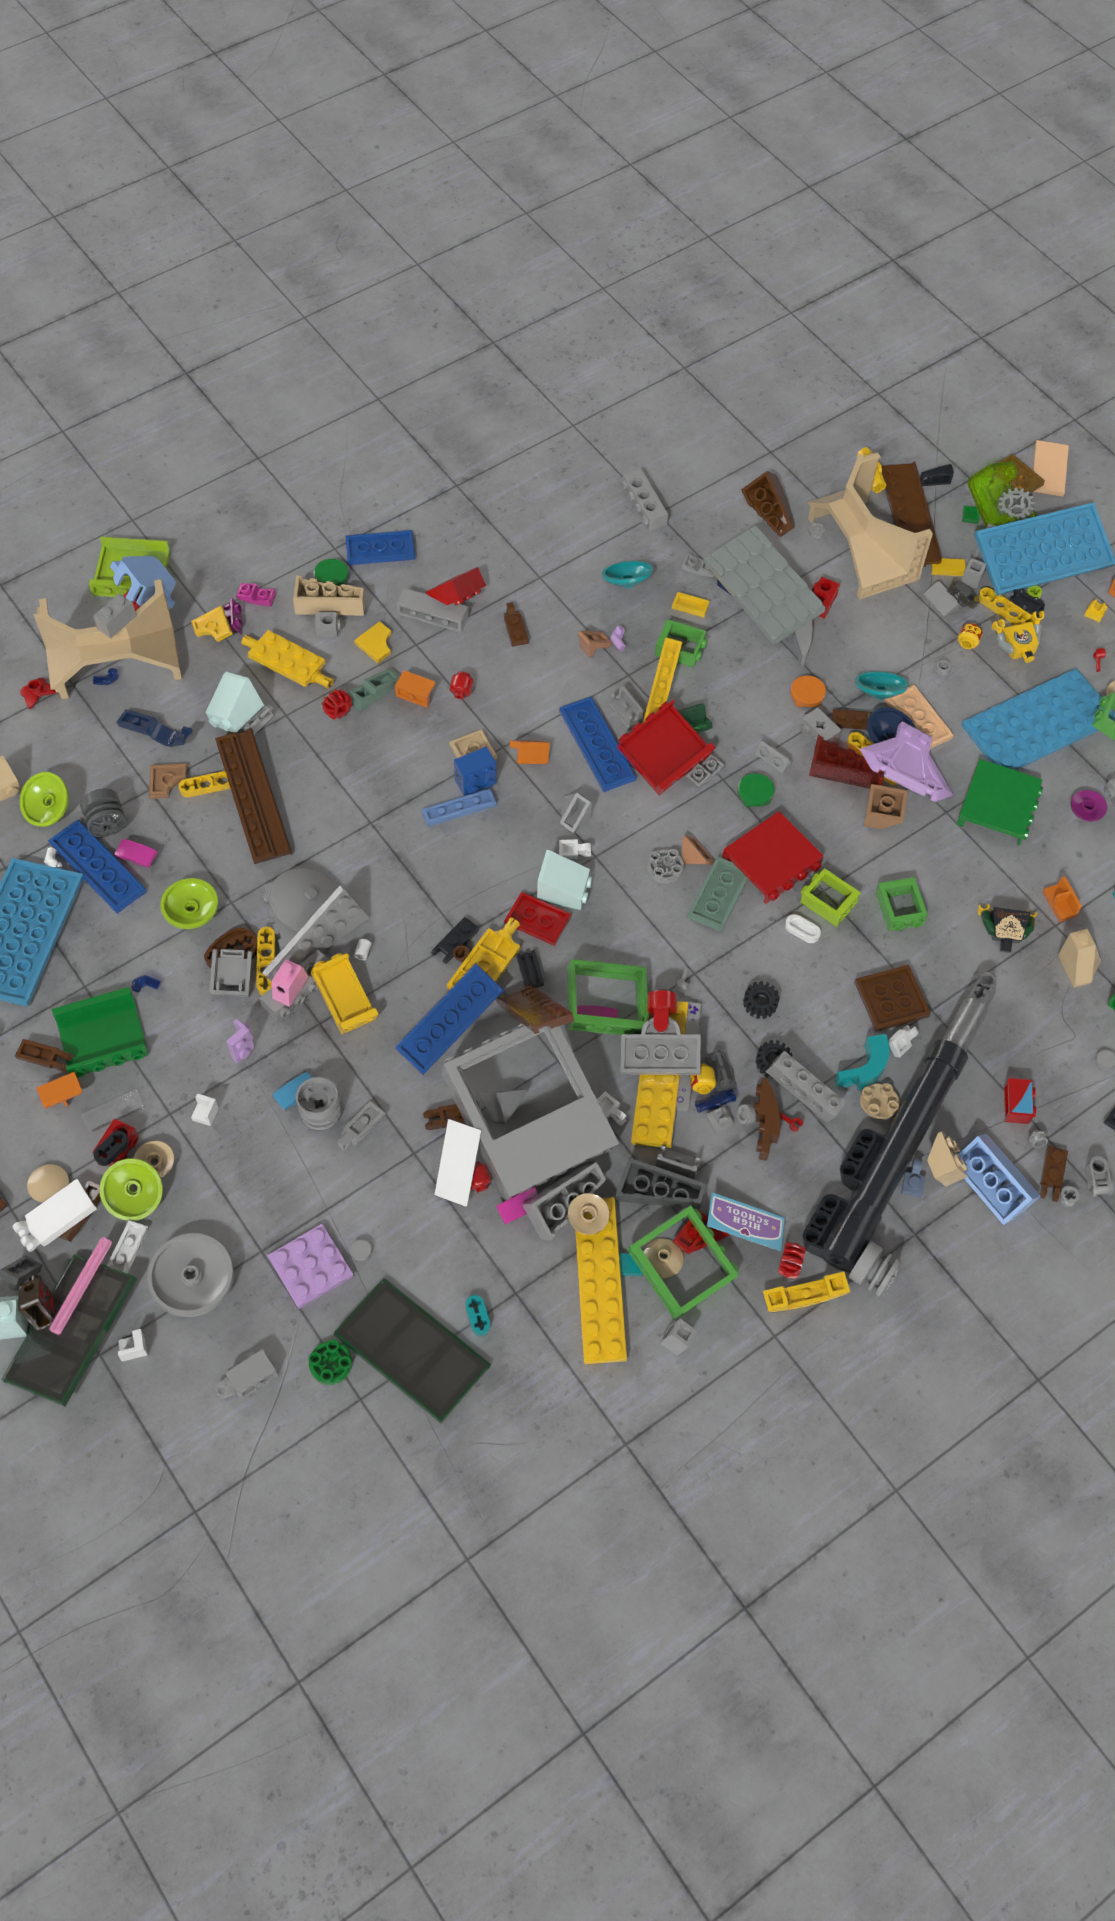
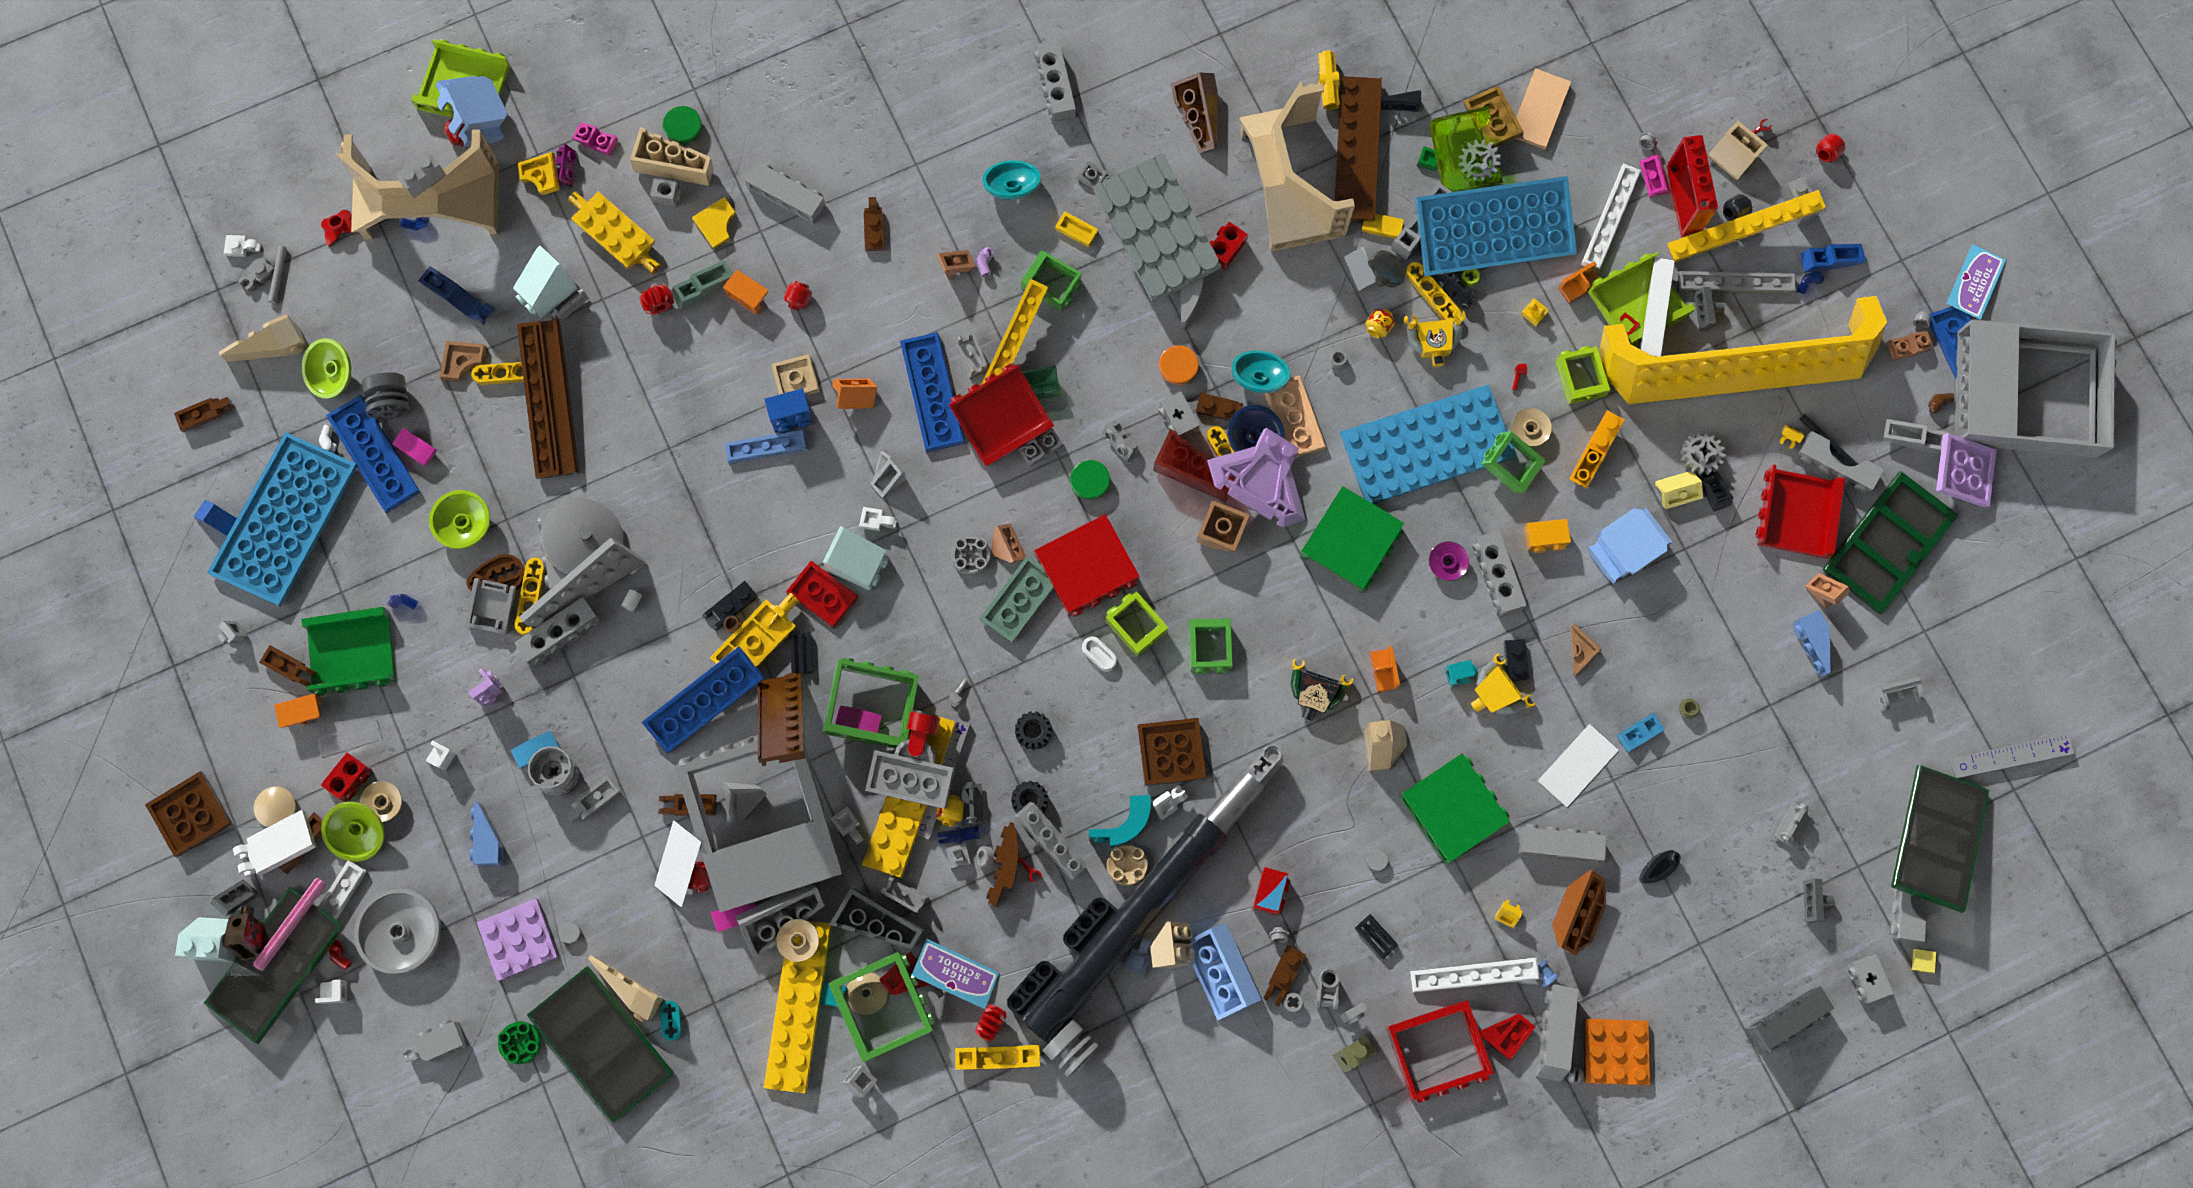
camera: 10 degrees right, 15 degrees up
(111, 1148) = (335, 782): black beam -> none
(131, 1311) = (336, 955): none -> red arm
(265, 1181) = (486, 843): none -> medium blue slope
(289, 979) = (543, 634): bright pink torso -> none
(343, 993) = (600, 651): yellow panel -> none
(380, 547) = (744, 97): blue tile -> none
(441, 1295) = (634, 995): none -> tan wedge
(458, 588) = (816, 171): red slope -> none

